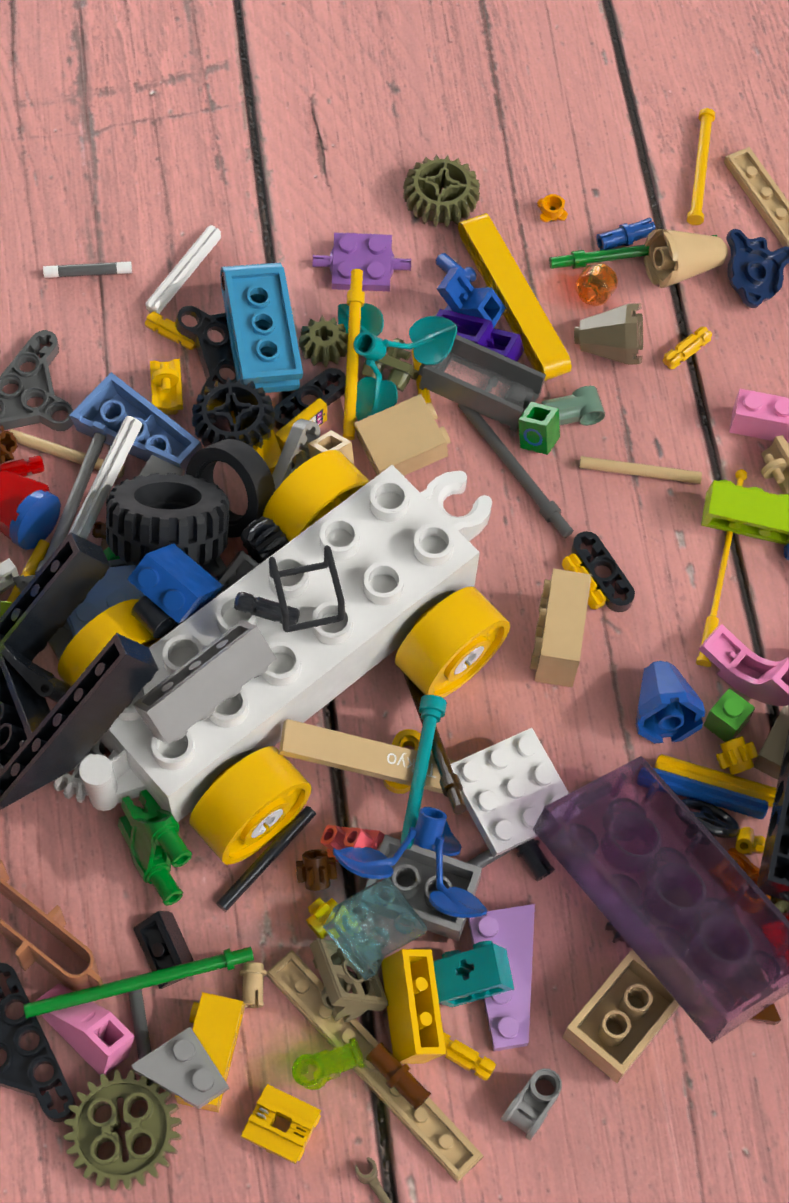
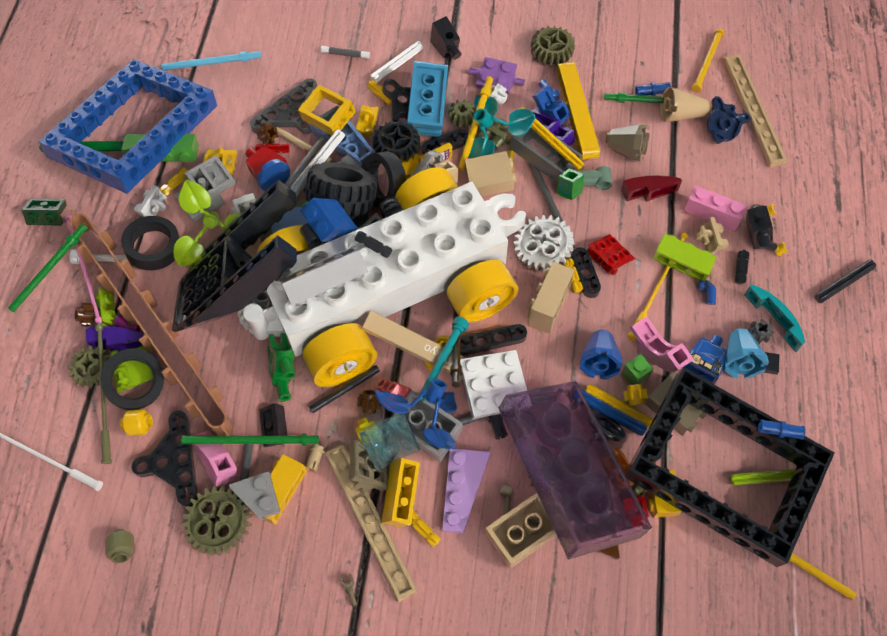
camera: 20 degrees right, 0 degrees up
(124, 399) = (340, 117): none -> yellow window
(259, 214) = (445, 38): none -> black torso
(276, 575) = (382, 226): black piece -> none
(278, 1103) = (299, 533): yellow piece -> none
(329, 1064) = (342, 513): clear neon green connector -> none
(377, 293) = (498, 93): none -> white gear
(398, 1076) = (380, 530): reddish brown pin -> none
(485, 724) = (491, 342): none -> black beam
(489, 978) = (440, 483): teal brick -> none
(500, 365) = (556, 144): none -> yellow axle
(522, 562) = (543, 242): none -> white gear
(531, 1108) = (454, 568): light grey piece -> none
(553, 202) = (614, 67): light orange plate -> none
(579, 960) = (506, 490): none -> dark tan hand
(596, 284) = (627, 112): clear orange head -> none
(635, 530) = (610, 253): none -> red hinge
(640, 470) = (624, 220): tan bar -> none
(666, 405) = (650, 187): none -> dark red slope
(687, 347) = (671, 158): yellow axle -> none
(747, 842) = (628, 446): yellow arm -> none

